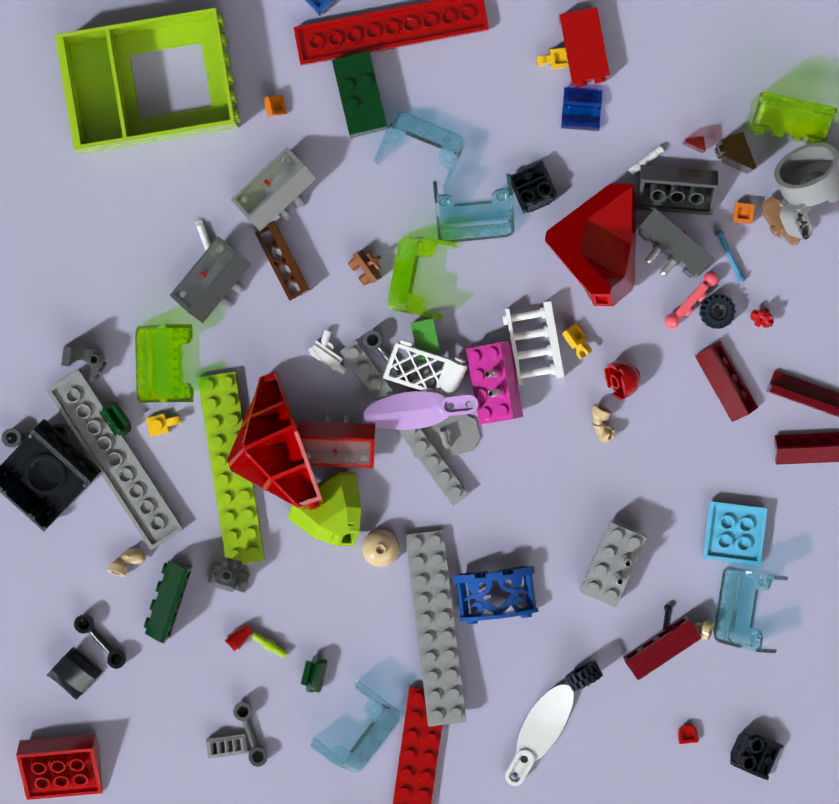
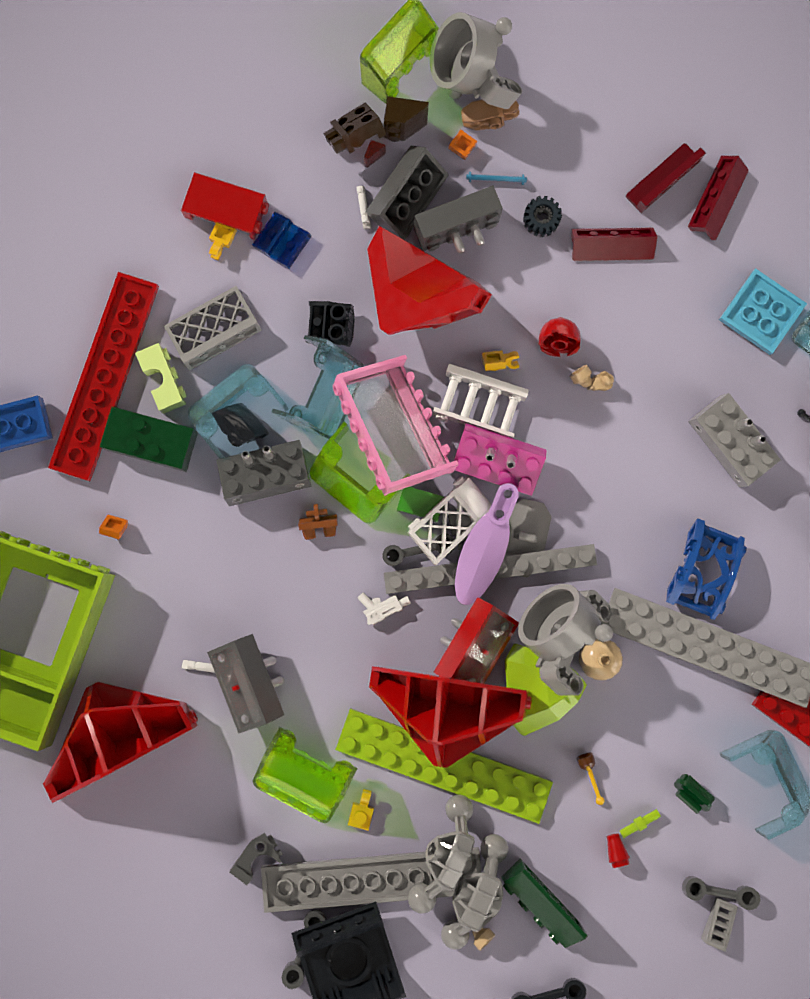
camera: 70 degrees left, 5 degrees down
(114, 415) = (335, 854): dark green piece -> none
(116, 195) = (112, 731): none -> red panel
(147, 545) = (477, 895): none -> light grey piece
(164, 506) = (446, 857): none -> light grey piece
(228, 575) = (551, 828): dark grey tile -> none
(274, 190) = (193, 571): piece -> none
(286, 254) = (267, 594): reddish brown fence -> none
(293, 579) = (587, 762): none -> hinge
(382, 201) = (263, 473): none -> dark grey piece
(387, 499) = (558, 627): none -> light grey piece
(405, 90) = (169, 394): none -> yellowish green arch
(410, 161) = (239, 424): none -> black slope
(473, 108) = (218, 343): none -> light grey fence
(475, 283) = (392, 425): none -> clear window
(672, 320) = (517, 227): coral plate -> none
(704, 117) = (354, 129): none -> dark brown hips
(762, 318) = (570, 179): red plant -> none

